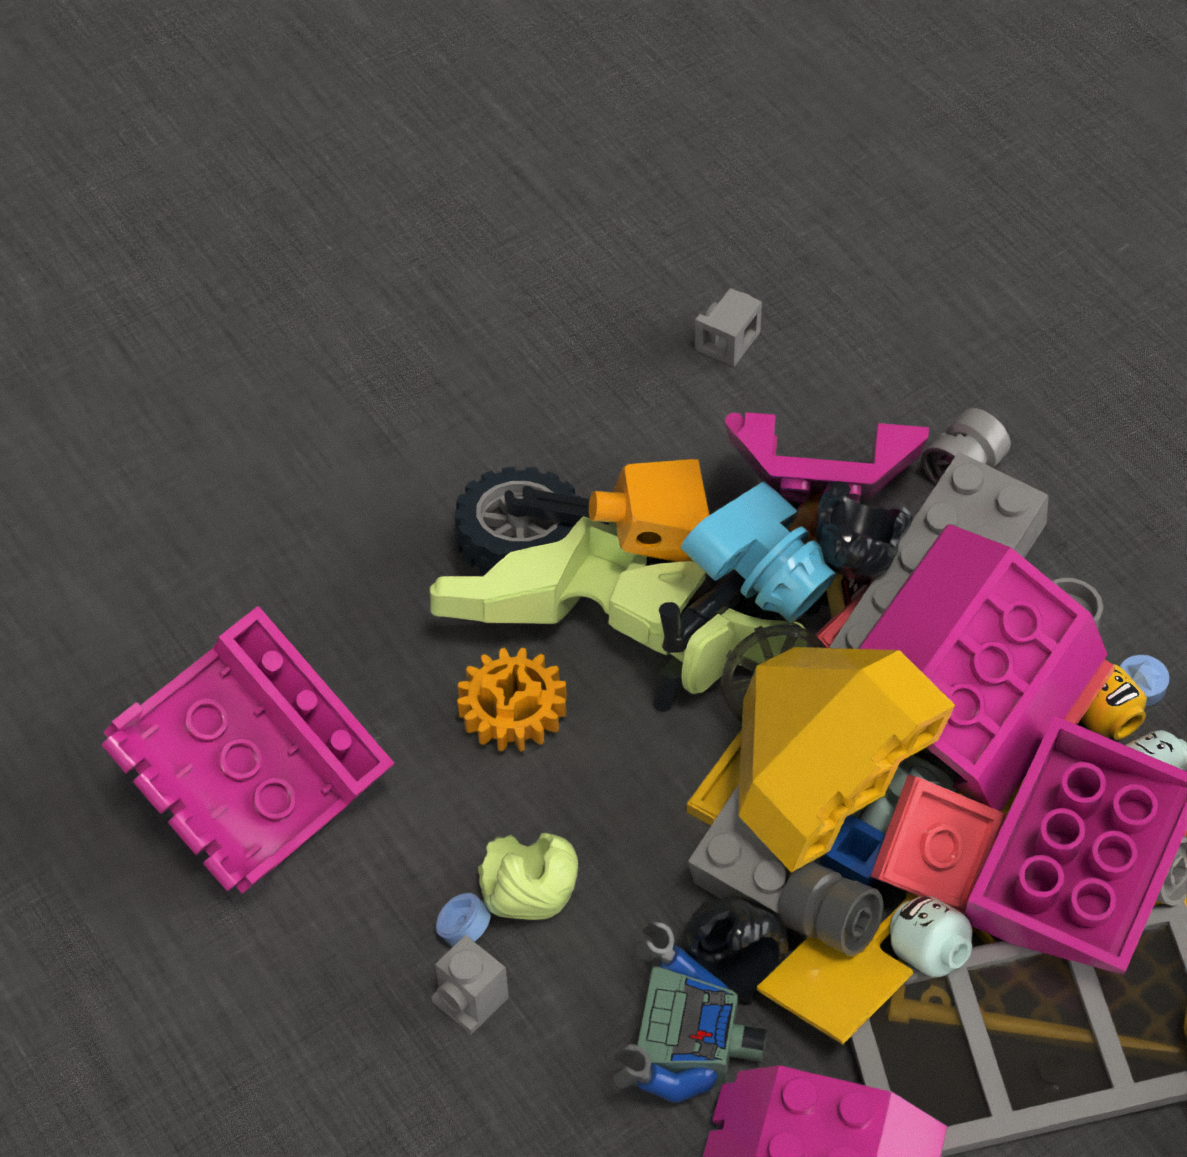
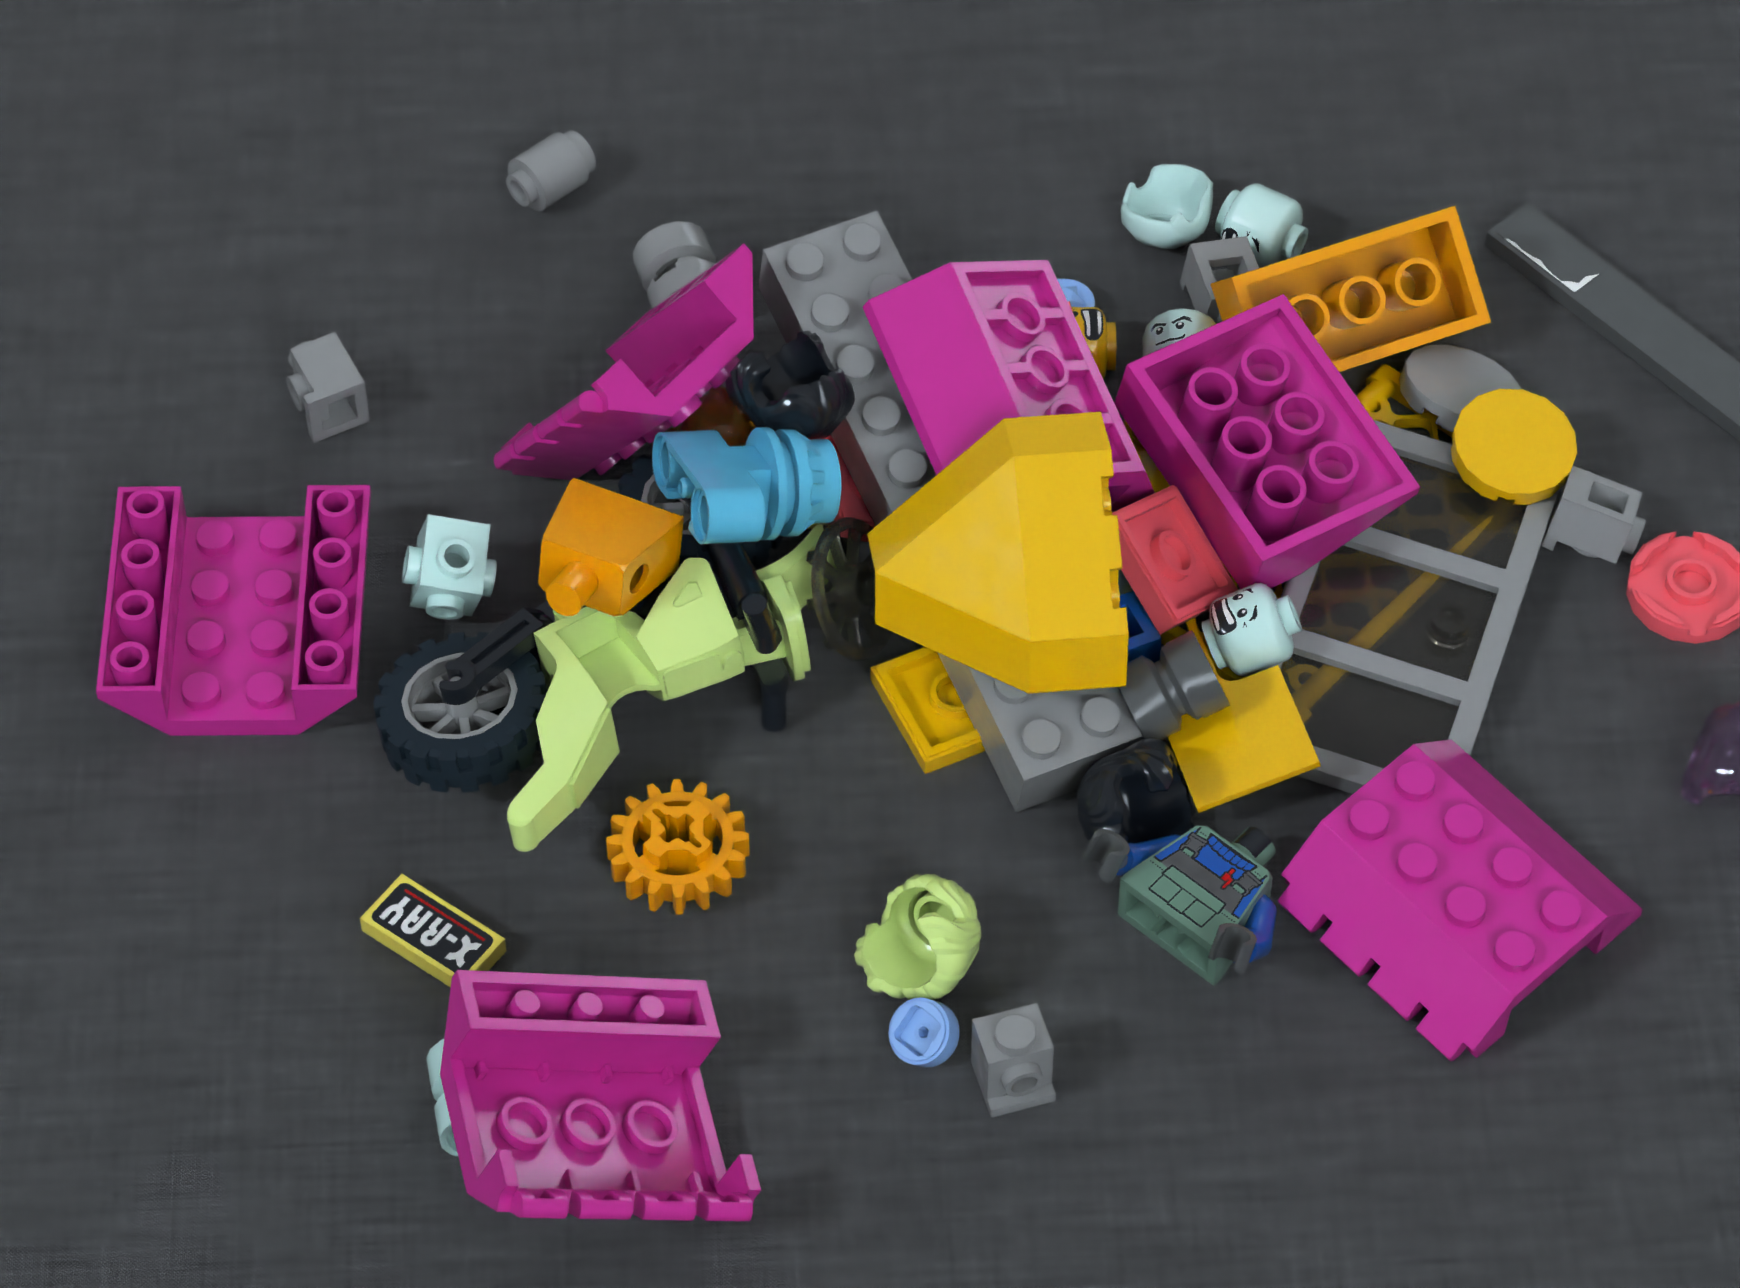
camera: 60 degrees left, 0 degrees up
(362, 610) = (431, 931): none -> tile
(516, 369) = (234, 615): none -> dark pink slope
(626, 447) = (449, 567): none -> light aqua brick
(997, 340) = (550, 170): none -> light grey brick

